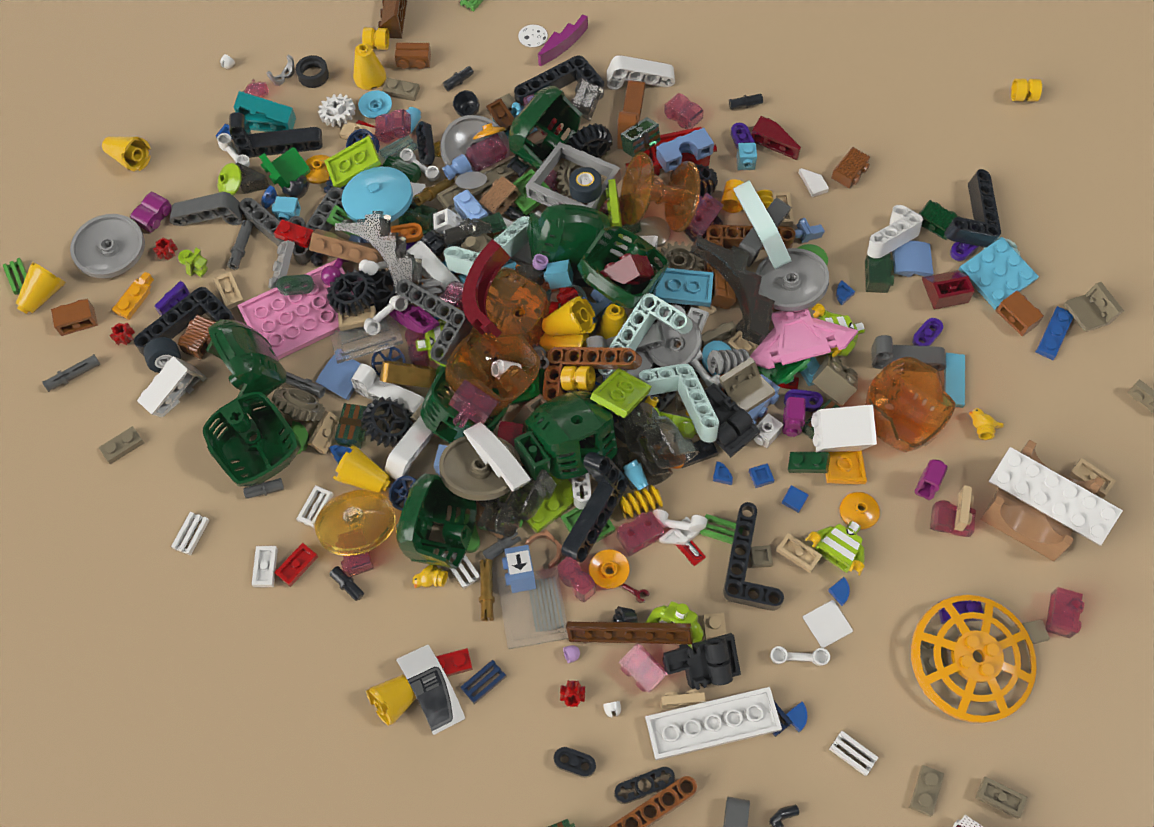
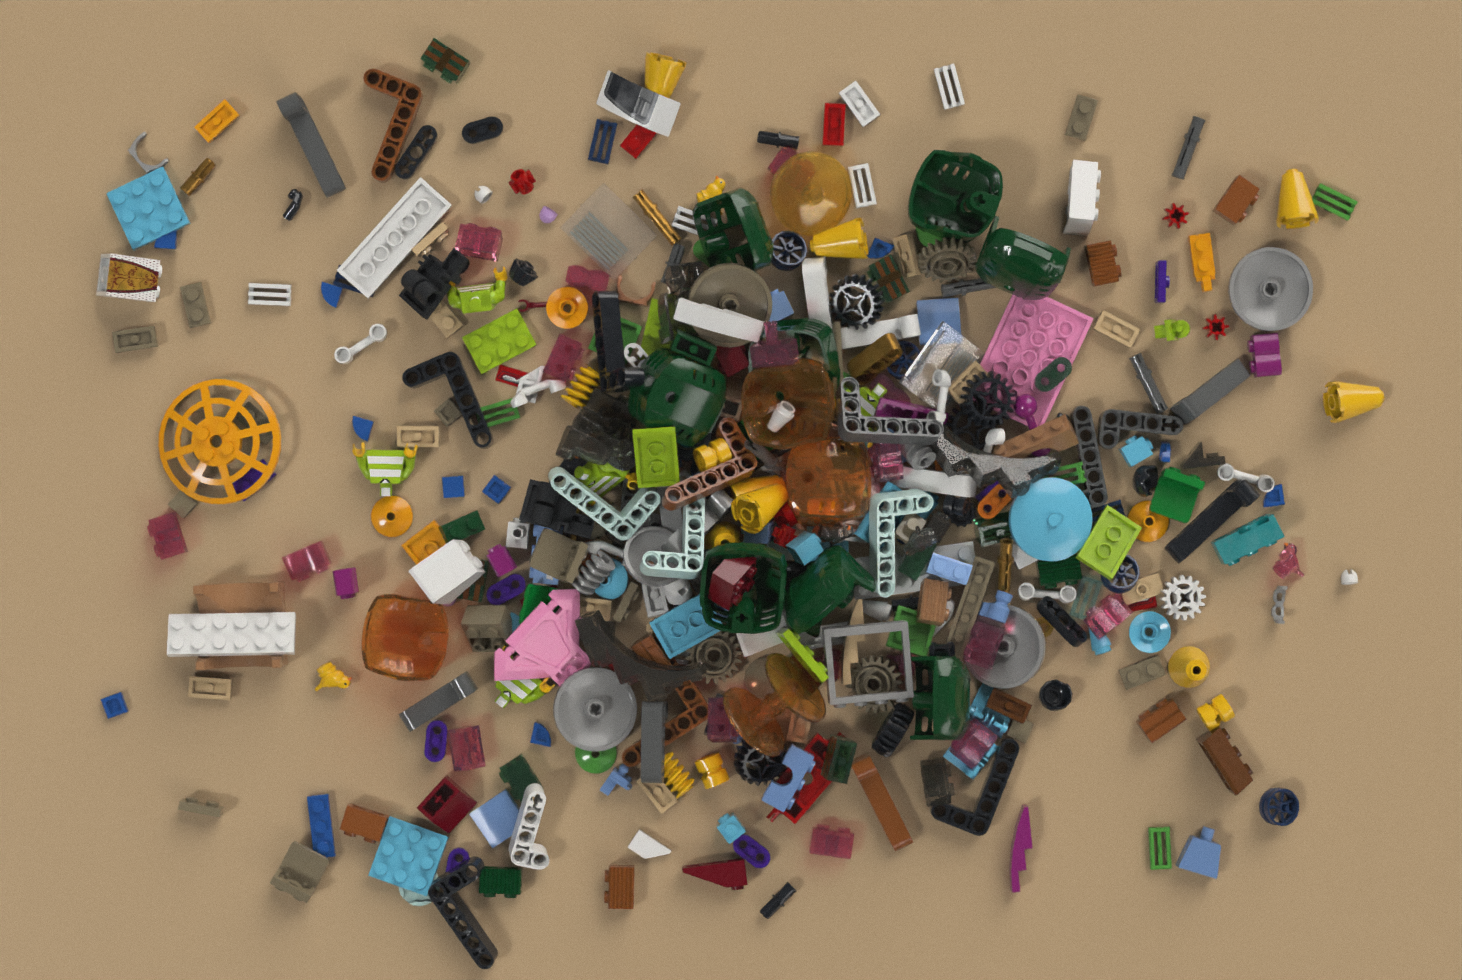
camera: 150 degrees right, 25 degrees up
(159, 351) = (1116, 220): black wheel -> none
(182, 317) = (1132, 271): black beam -> none
(229, 179) = (1218, 441): lime dish -> none
(263, 488) = (909, 178): dark grey axle -> none
(282, 264) = (1086, 388): light grey hinge -> none
(293, 232) = (1098, 424): red plate -> none
(309, 62) = (1265, 627): black tyre -> none
(444, 220) = (960, 538): white brick -> none
(458, 78) = (1092, 726): black axle -> none
(471, 180) = (973, 600): light grey sticker -> none
(477, 286) = (861, 468): dark red arch -> none
(488, 130) = (995, 666): light orange dish -> none
(520, 569) = (640, 252): medium blue brick -> none
(532, 35) = (1059, 838): white sticker -> none
(540, 262) = (829, 547): lavender hinge -> none
(585, 185) = (848, 661): black wheel -> none
(630, 632) = (509, 260): reddish brown tile -> none
(635, 474) = (600, 402): medium azure cone -> none
(636, 69) = (907, 858): white beam -> none
(682, 582) = (499, 341): none -> lime plate
(722, 474) = (531, 466): blue tile -> none
(762, 224) = (659, 738): light aqua beam -> none
(827, 624) = (356, 392): white sticker -> none
(907, 312) = (466, 748): none -> clear pink brick
(955, 378) = (384, 708): medium azure tile -> none
(965, 501) = (297, 560): tan plate -> none

